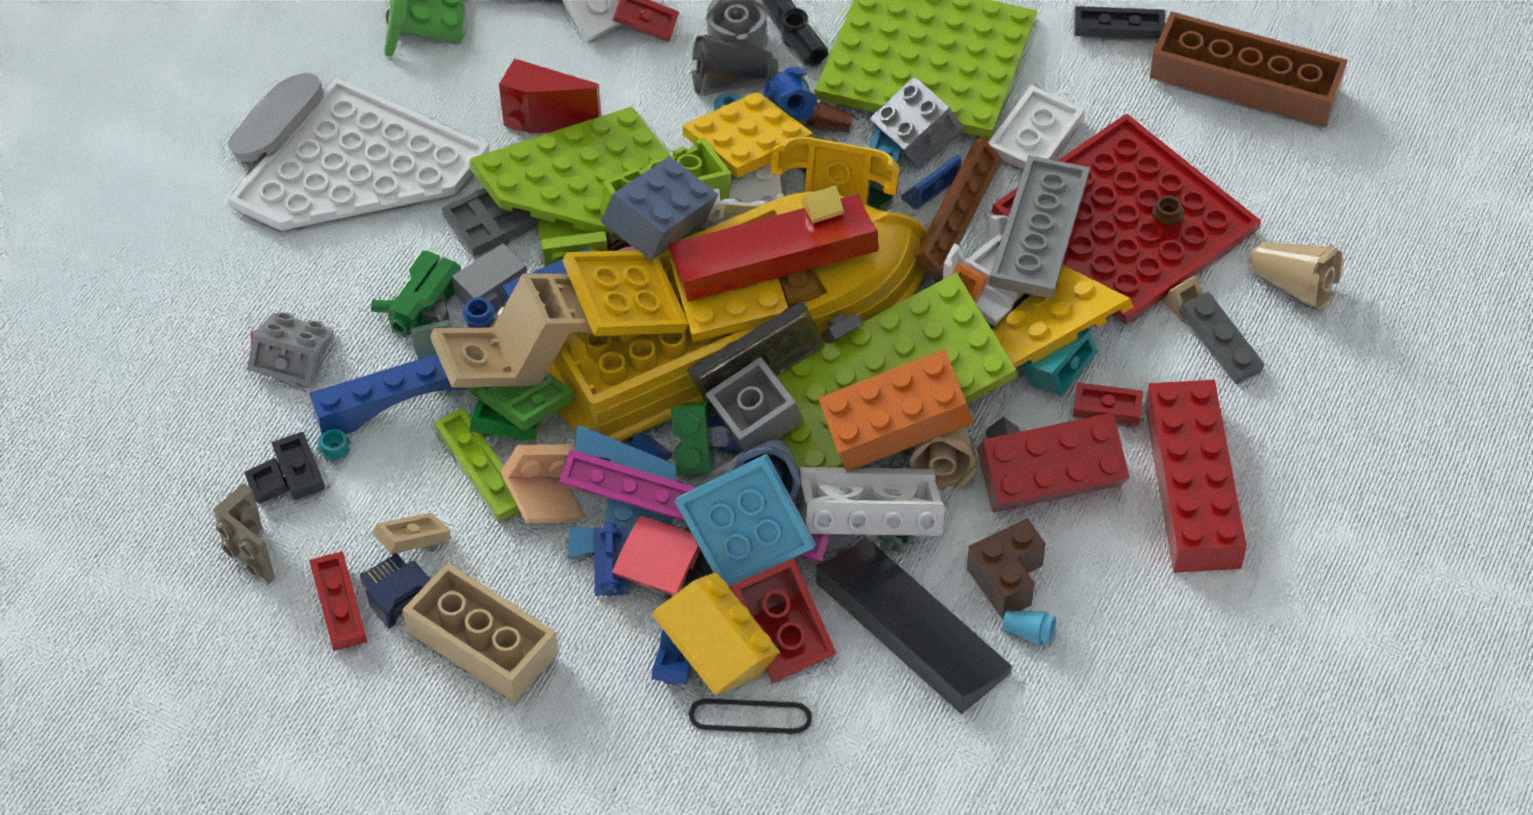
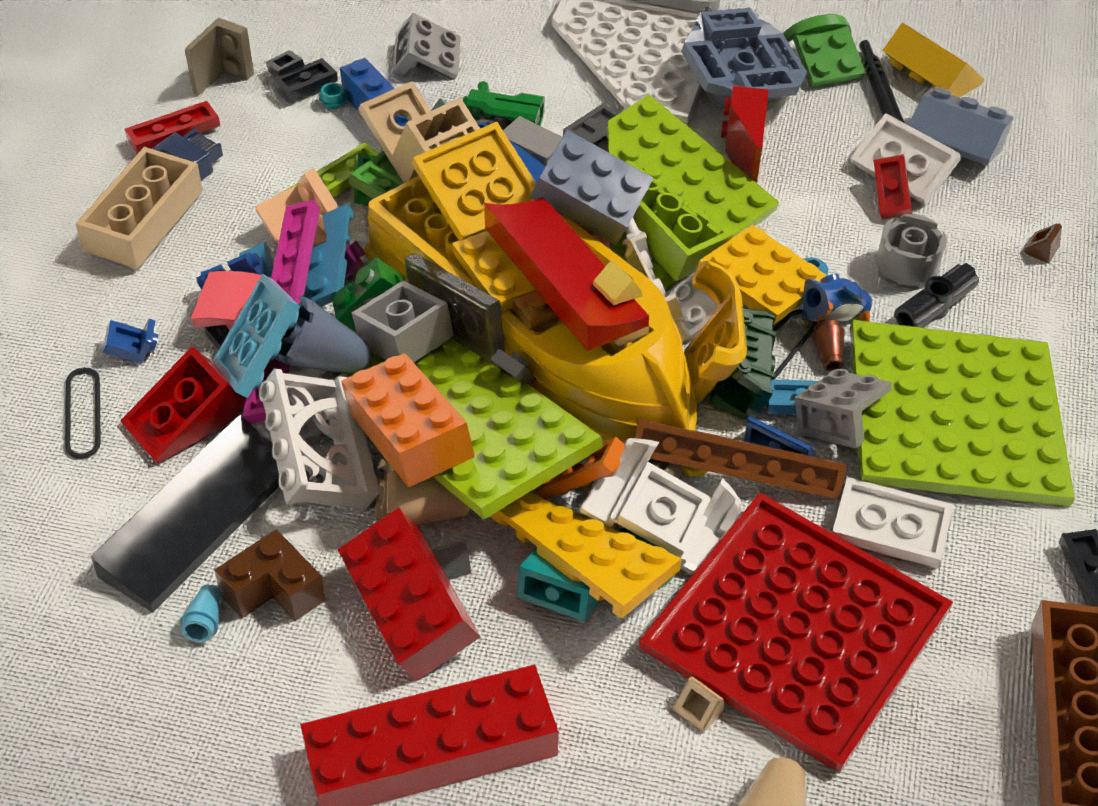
camera: 75 degrees right, 5 degrees down
(411, 533) = (240, 149): tan plate -> none
(441, 72) = (742, 51): none -> sand blue piece
(716, 634) = (141, 350): yellow slope -> none
(729, 65) = (854, 250): clear smoke cone -> none
(1039, 227) = (723, 523): light grey plate -> none
(1098, 400) = (518, 638): red plate -> none
(1168, 210) = (808, 647): reddish brown plate -> none
(1222, 337) = (648, 749): dark grey plate -> none

